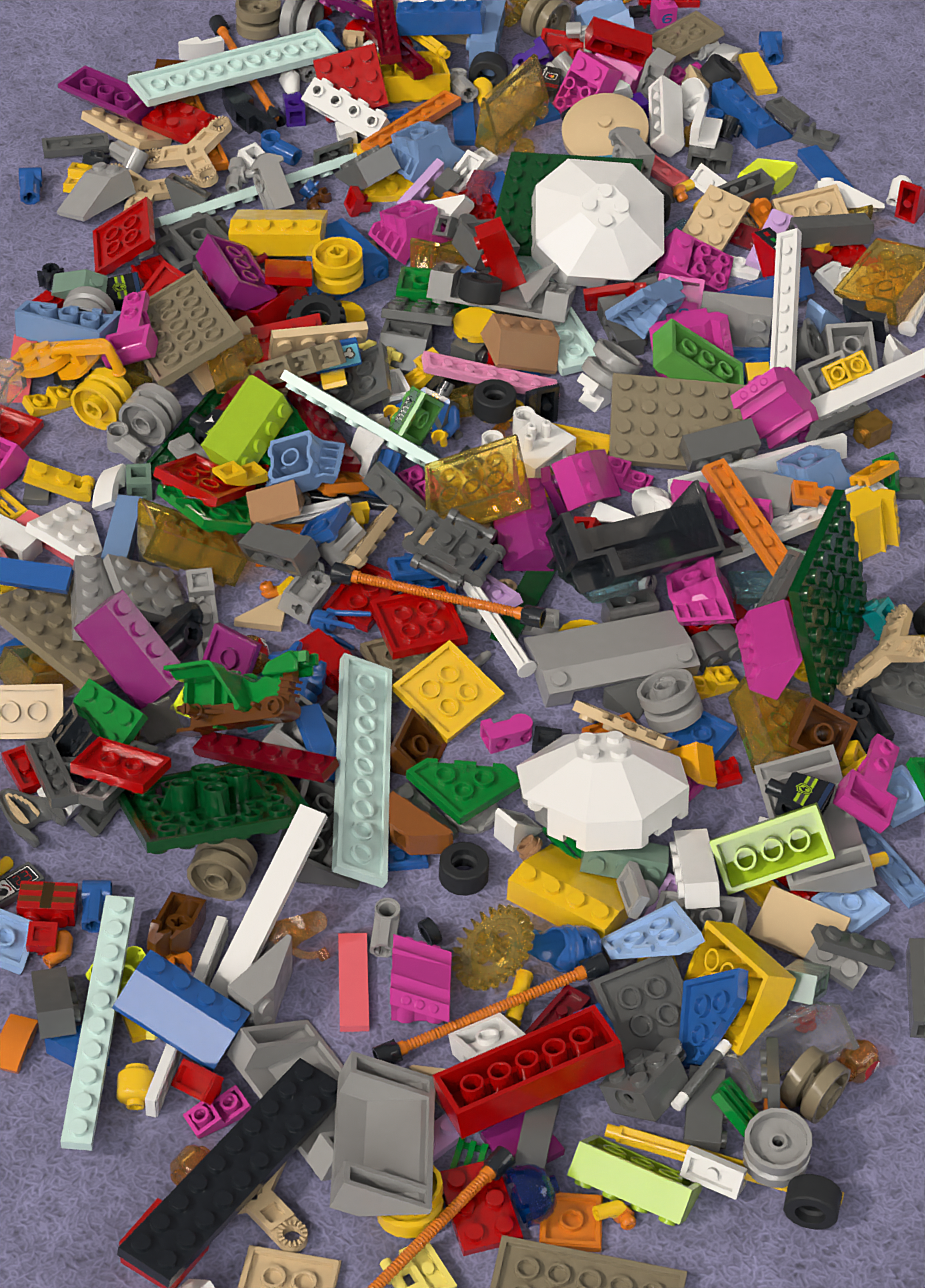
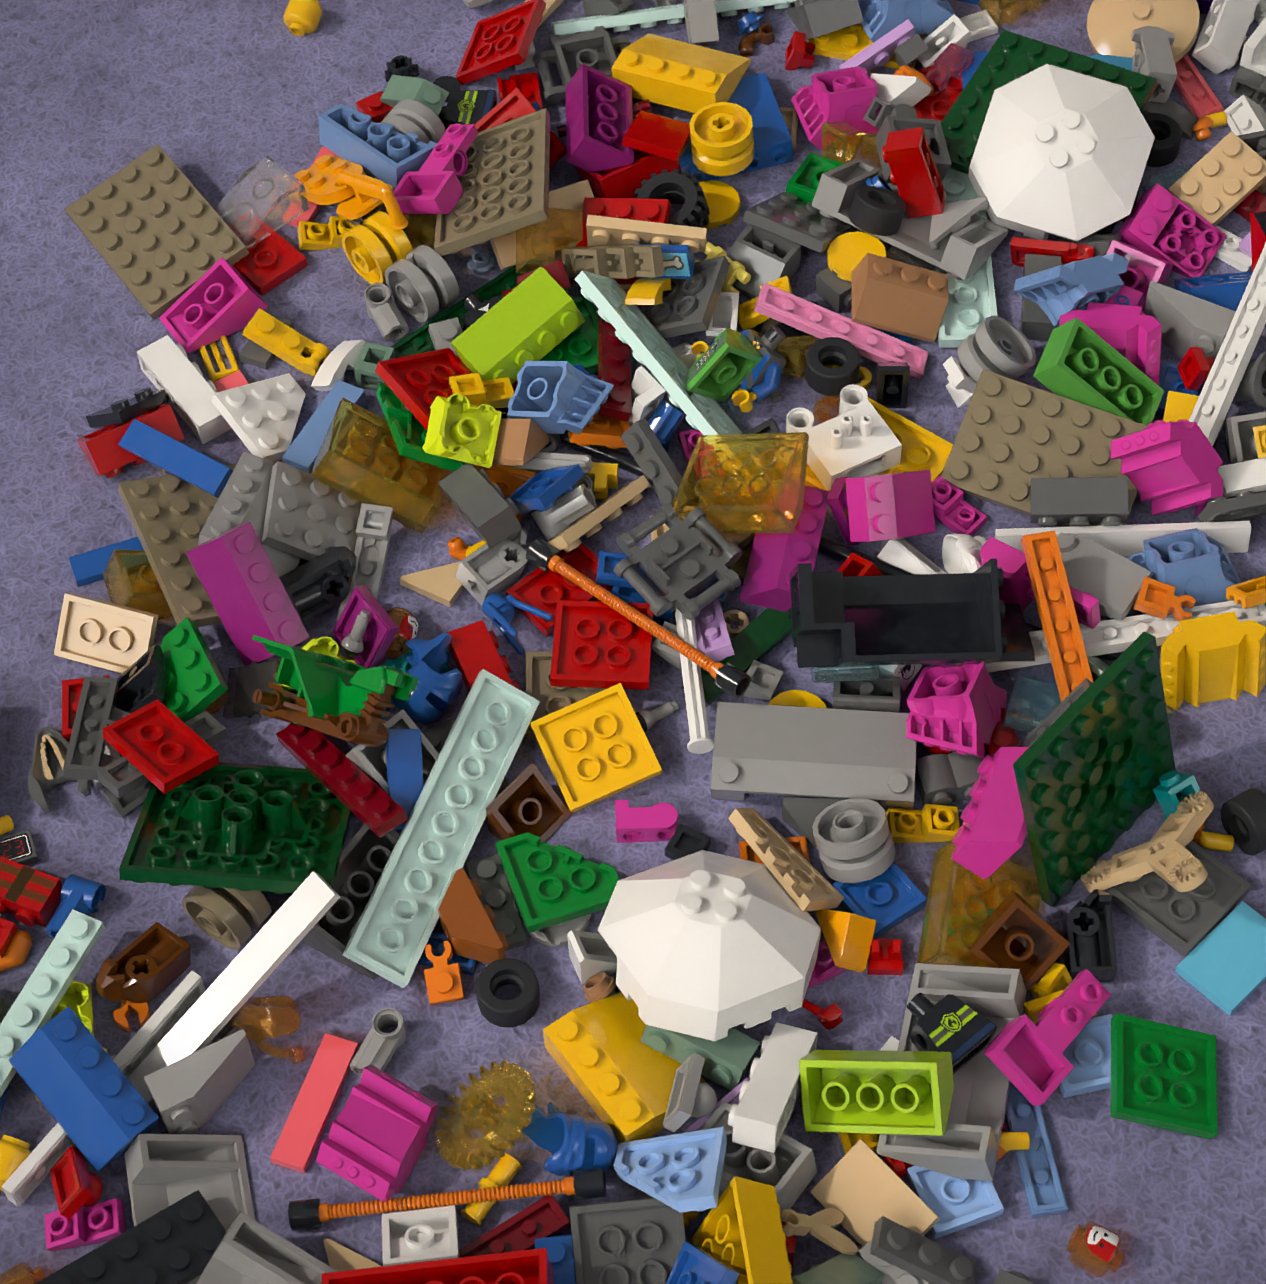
camera: 25 degrees right, 10 degrees up
(183, 394) = (480, 267): none -> sand blue plate
(228, 655) = (353, 643): none -> light grey piece
(244, 498) = (462, 430): none -> neon yellow slope
(409, 874) = (445, 979): none -> orange plate
(429, 931) = (429, 1065): black tile -> none
(524, 145) = (1037, 22): clear yellow plate -> none
(703, 822) = (828, 1017): none -> red hand
(756, 344) = (1194, 368): none -> red tile
(775, 945) = (820, 1226): none -> tan piece

